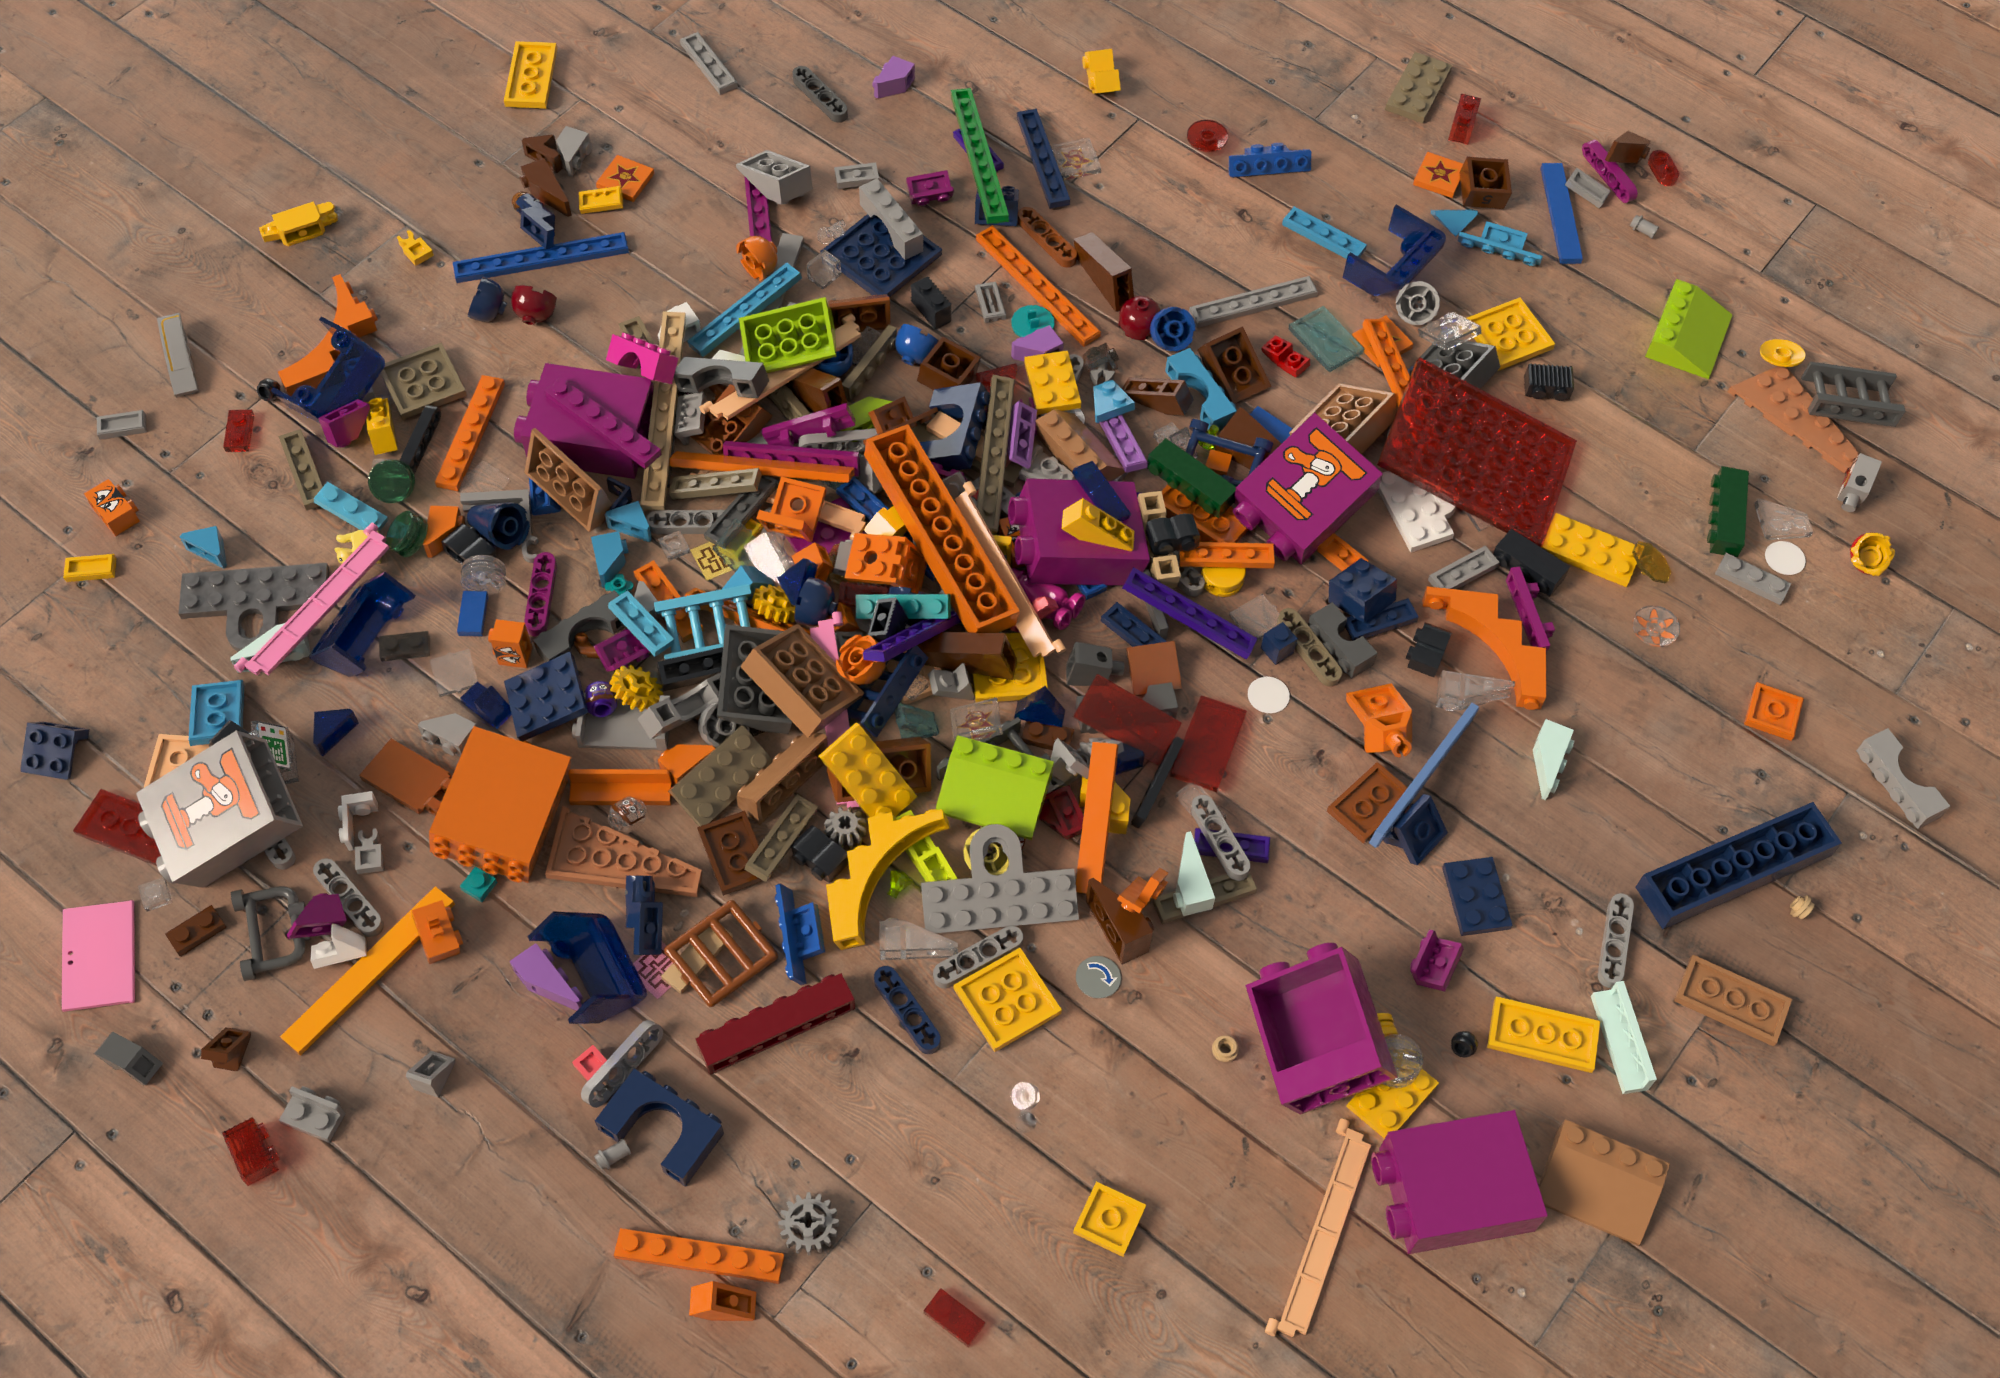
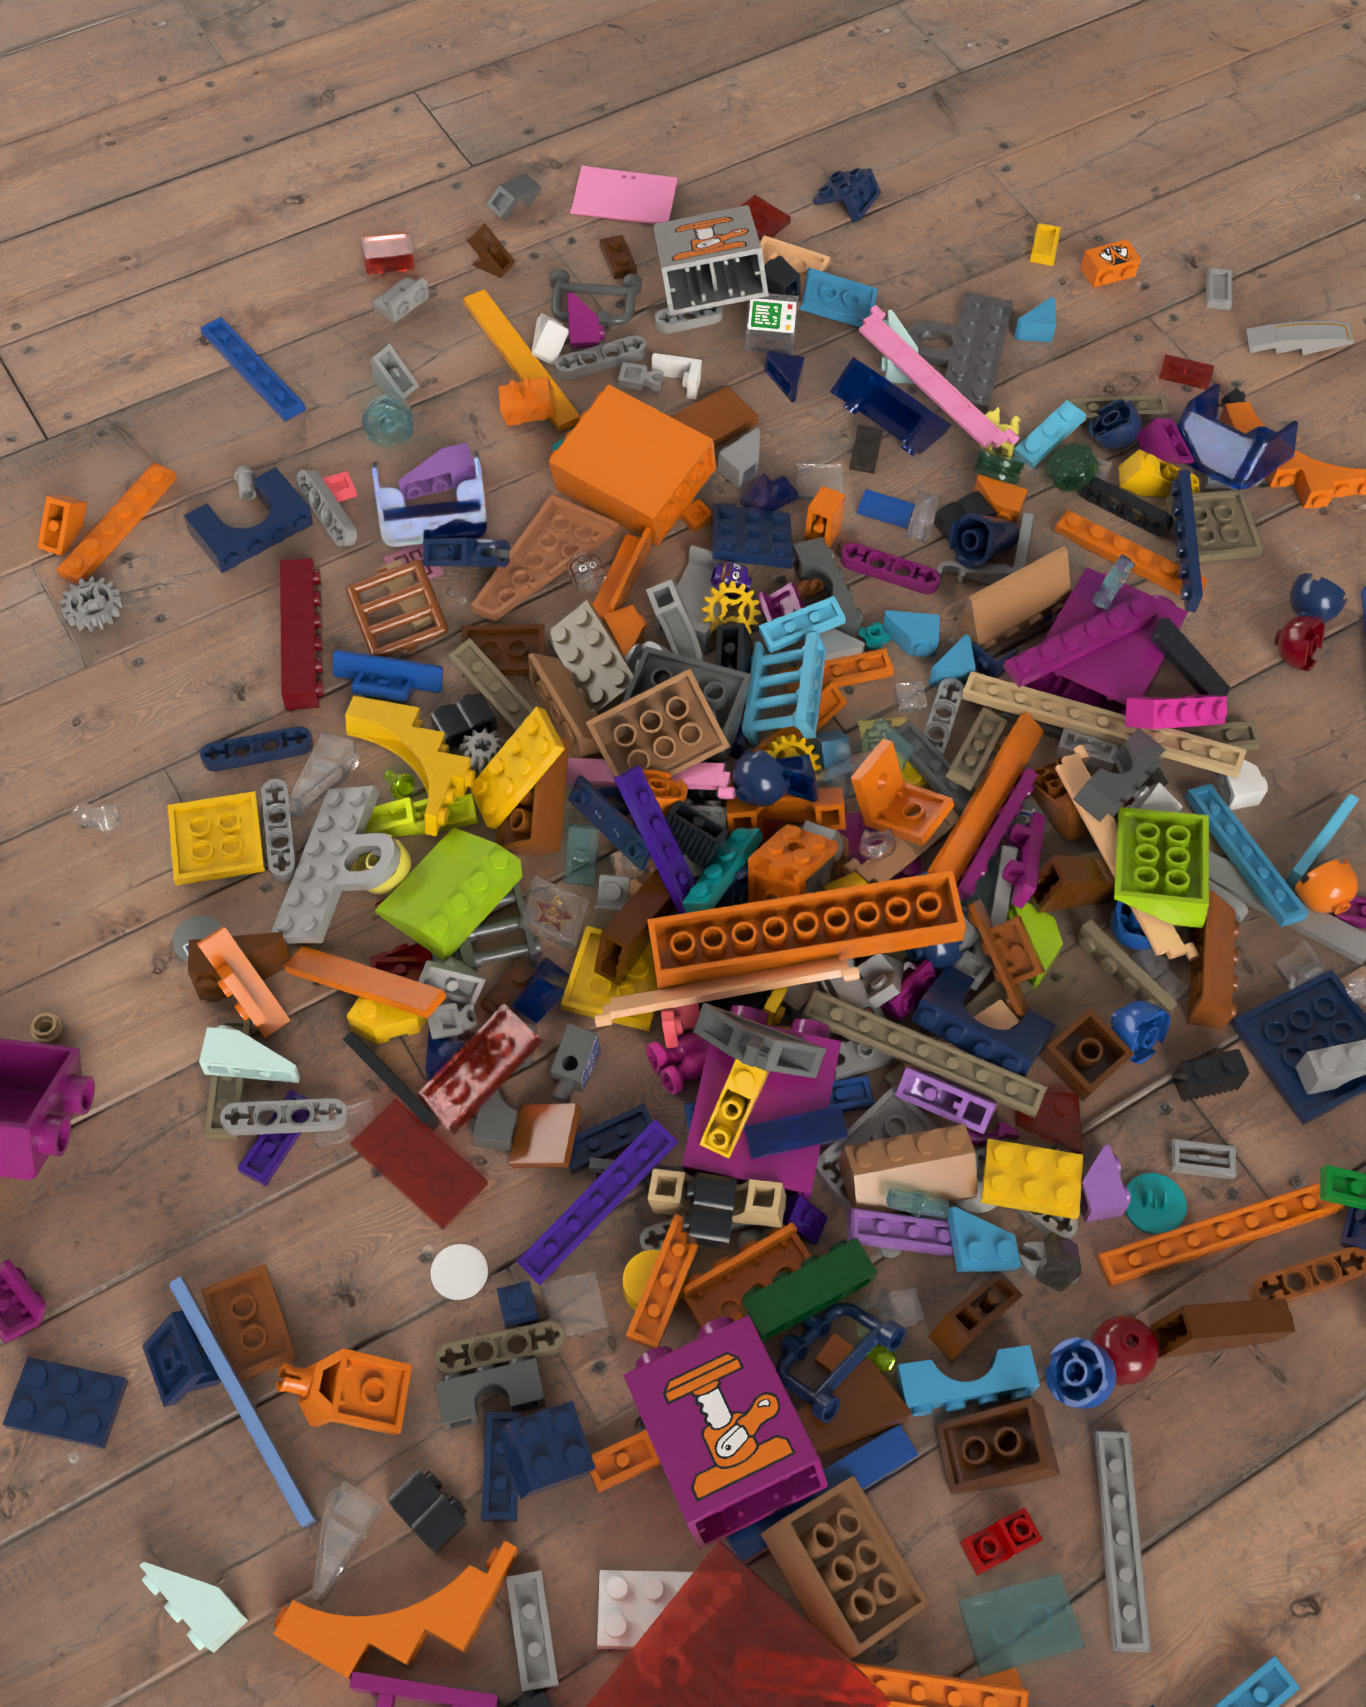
camera: 110 degrees right, 0 degrees up
(323, 459) = (1116, 425): none -> dark blue cylinder
(451, 1224) = (253, 369): none -> blue tile
(454, 386) = (1187, 544): none -> dark blue plate
(493, 1048) = (388, 420): none -> clear light blue cylinder
(540, 393) = (1113, 582): none -> clear light blue plate
(589, 359) = (1188, 659): none -> black tile
(713, 270) = (1321, 841): none -> medium azure tile
(840, 527) = (879, 851): none -> clear piece
(1065, 513) = (758, 1044): none -> dark grey connector
(1102, 434) = (917, 1203): none -> clear light blue axle

